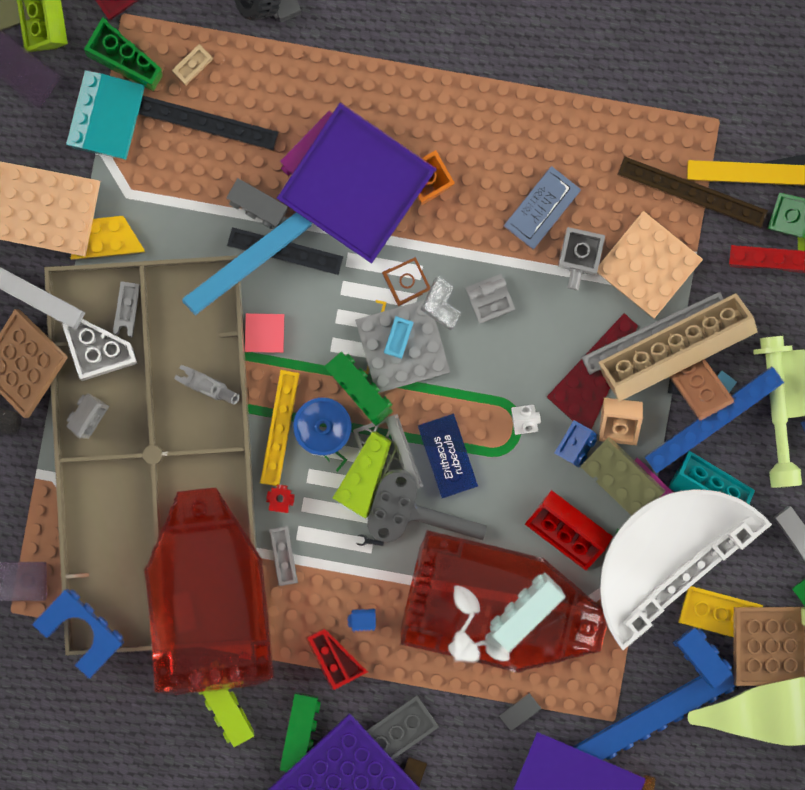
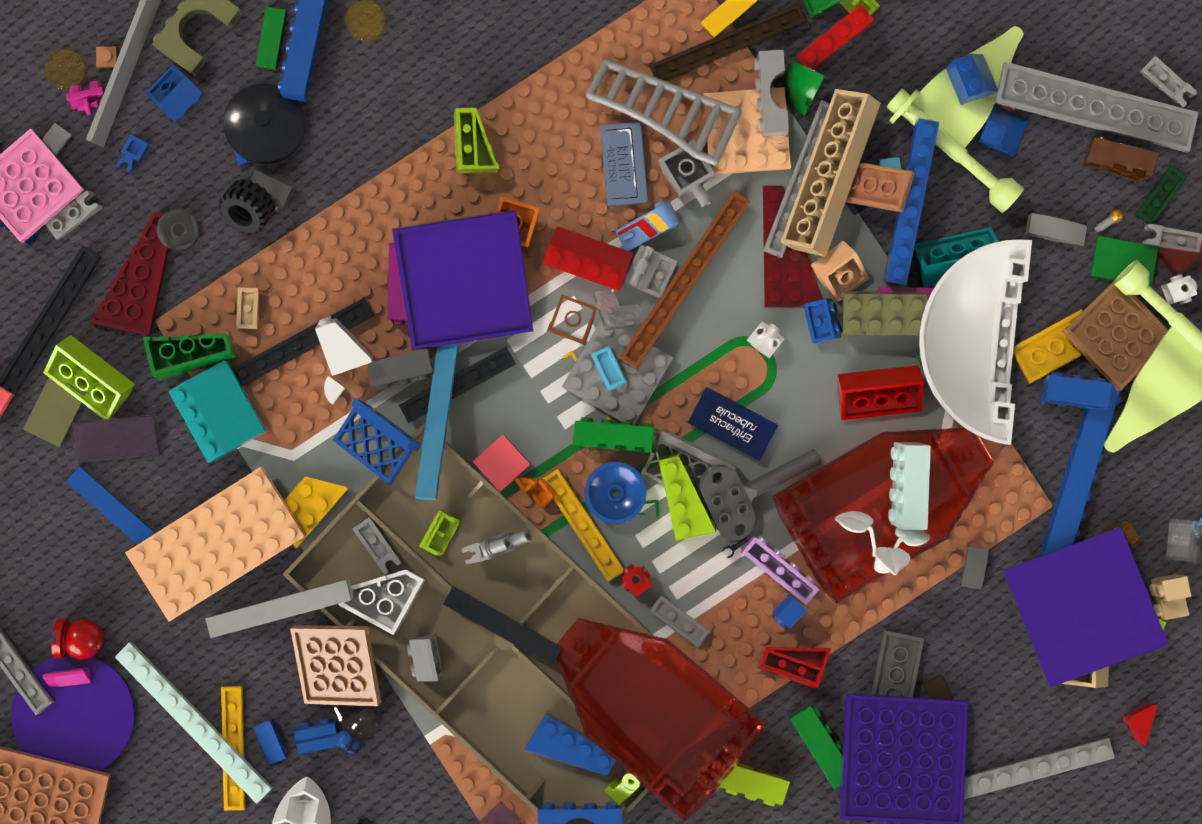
camera: 50 degrees left, 0 degrees up
(127, 566) = (566, 744): none -> blue wedge
(133, 631) = (622, 789): none -> lime leg
(159, 443) = (502, 625): none -> black tile
(177, 341) = (440, 533): none -> lime hinge
(197, 174) = (332, 390): none -> white tile
(209, 236) = (387, 428): none -> blue fence
(230, 150) = (340, 346): none -> white slope
(272, 374) = (538, 488): none -> orange slope
(383, 585) = (785, 574): none -> lavender brick
(450, 96) = (471, 144): none -> lime wedge
(455, 249) = (587, 258): none -> red slope
(508, 326) = (684, 279): none -> dark orange plate
(518, 266) = (648, 226): none -> medium blue door
(592, 207) = (662, 127): none -> light grey bar
(705, 236) = (773, 118): none -> light grey arch
(714, 270) = (801, 86): none -> green brick

